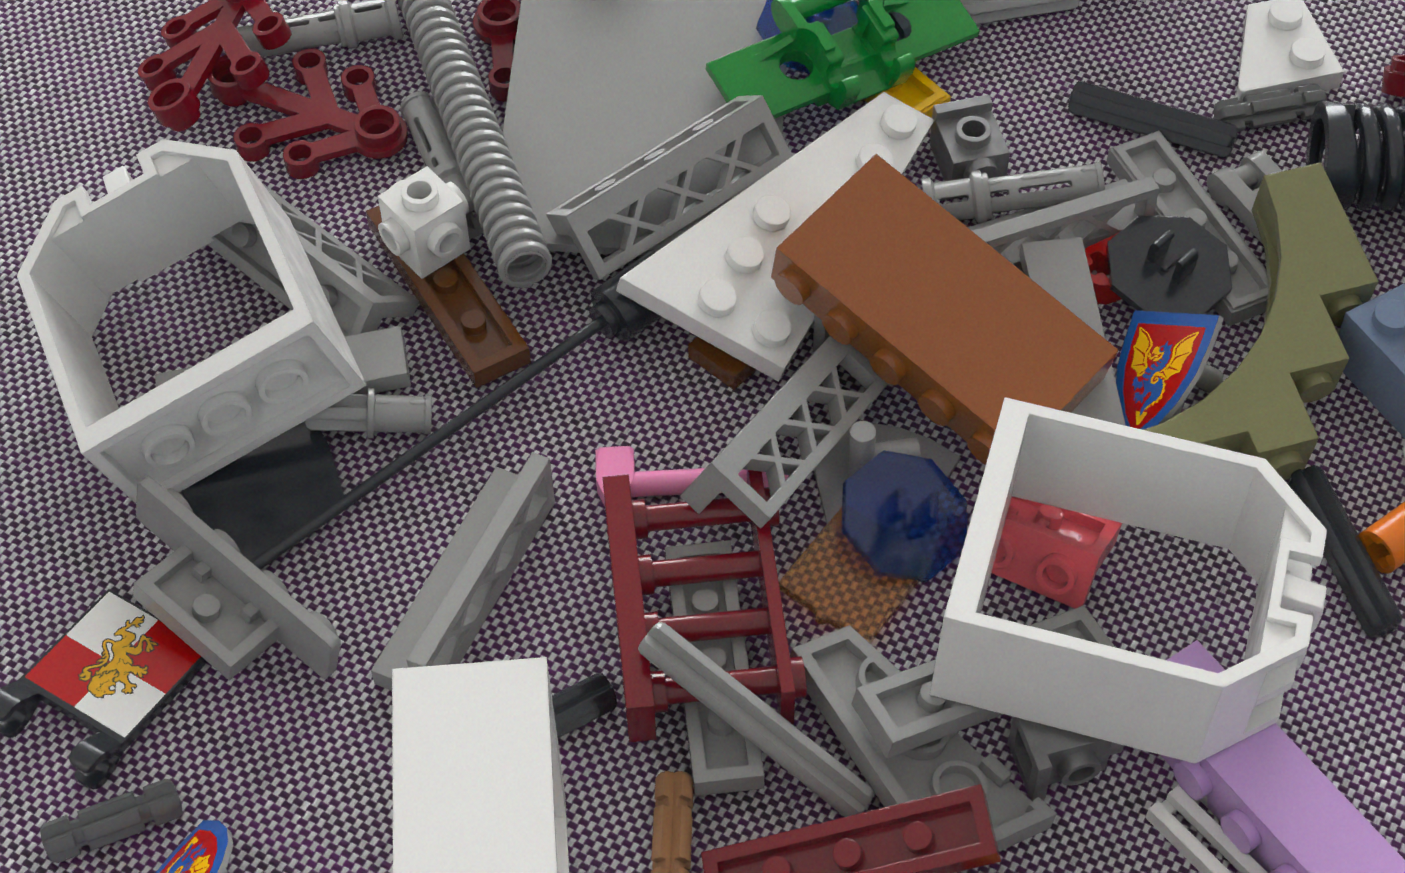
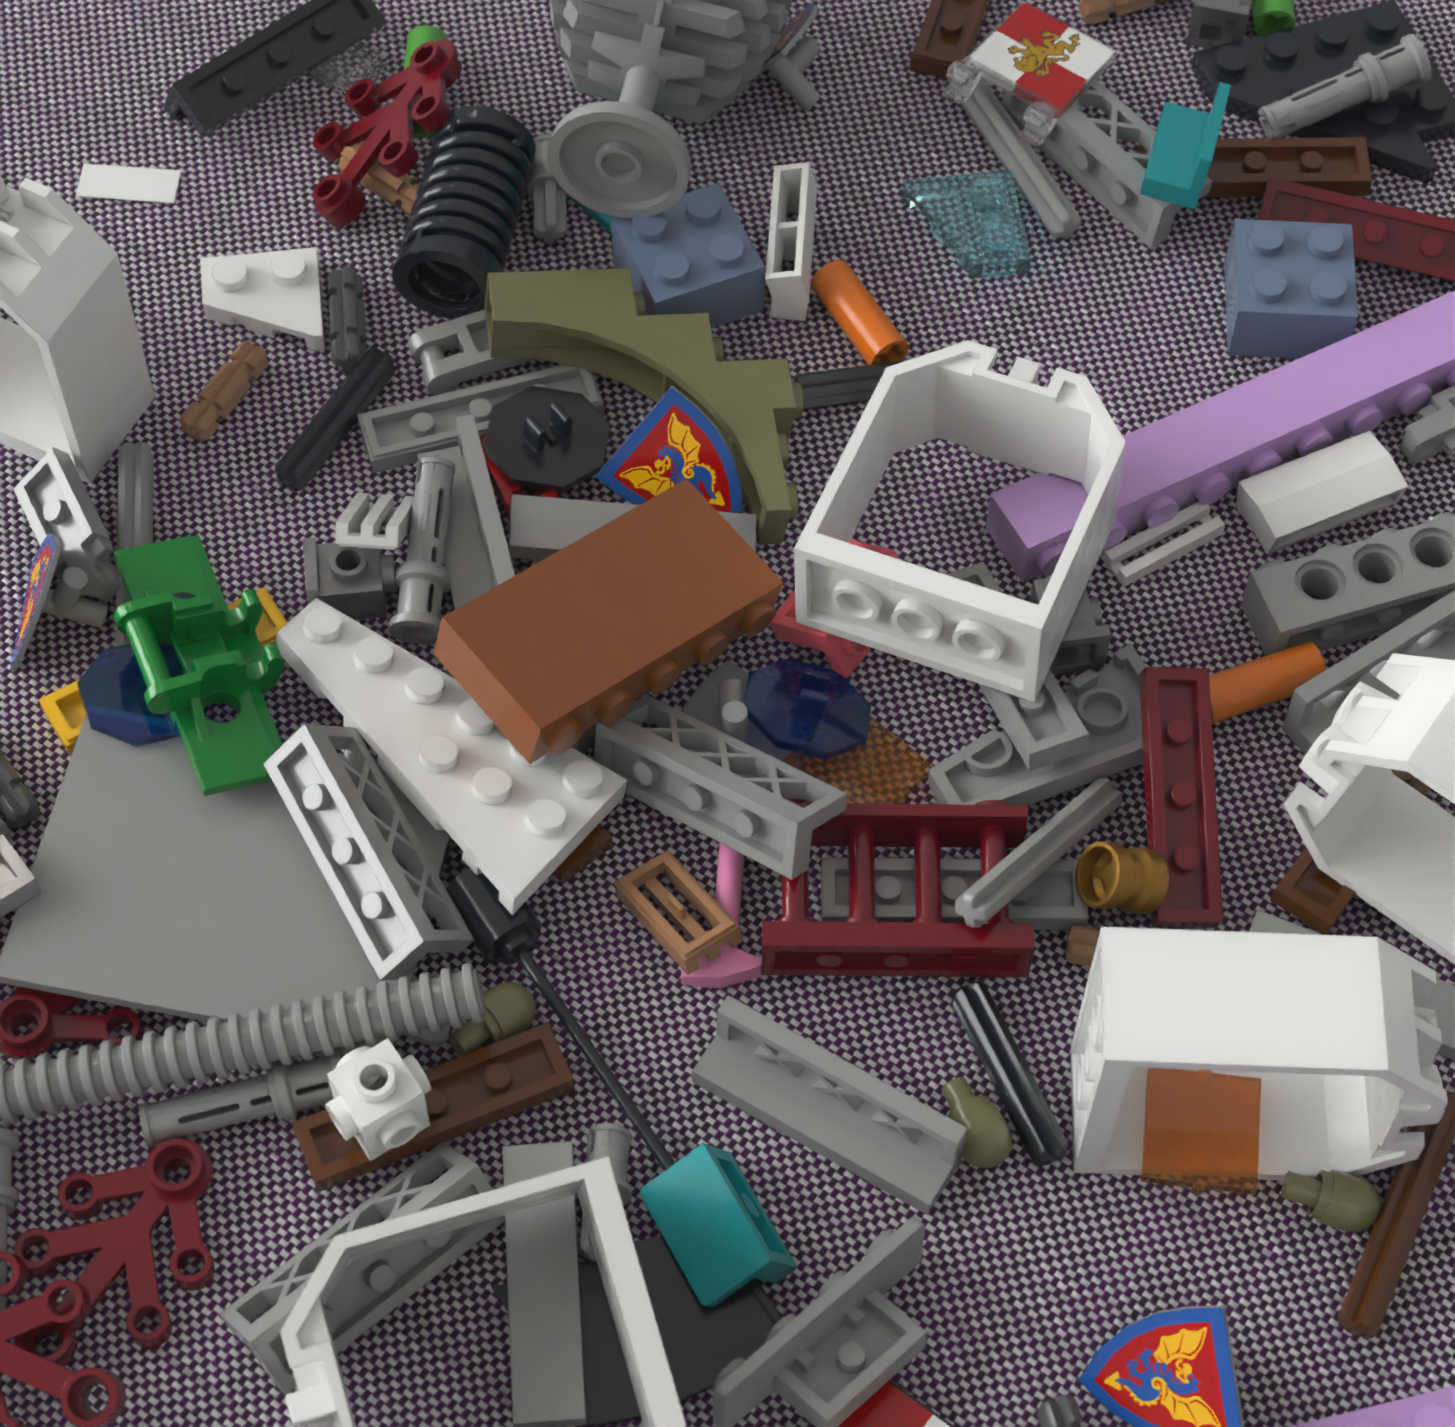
camera: 85 degrees left, 5 degrees up
(343, 503) = (715, 1225): none -> teal panel
(537, 317) = (508, 1013): none -> olive cylinder
(668, 440) = (702, 942): none -> medium nougat tile
(737, 803) = (1132, 878): none -> pearl gold wheel
(1022, 141) = (370, 518): none -> white tile
(1158, 38) = (223, 391): none -> medium nougat axle

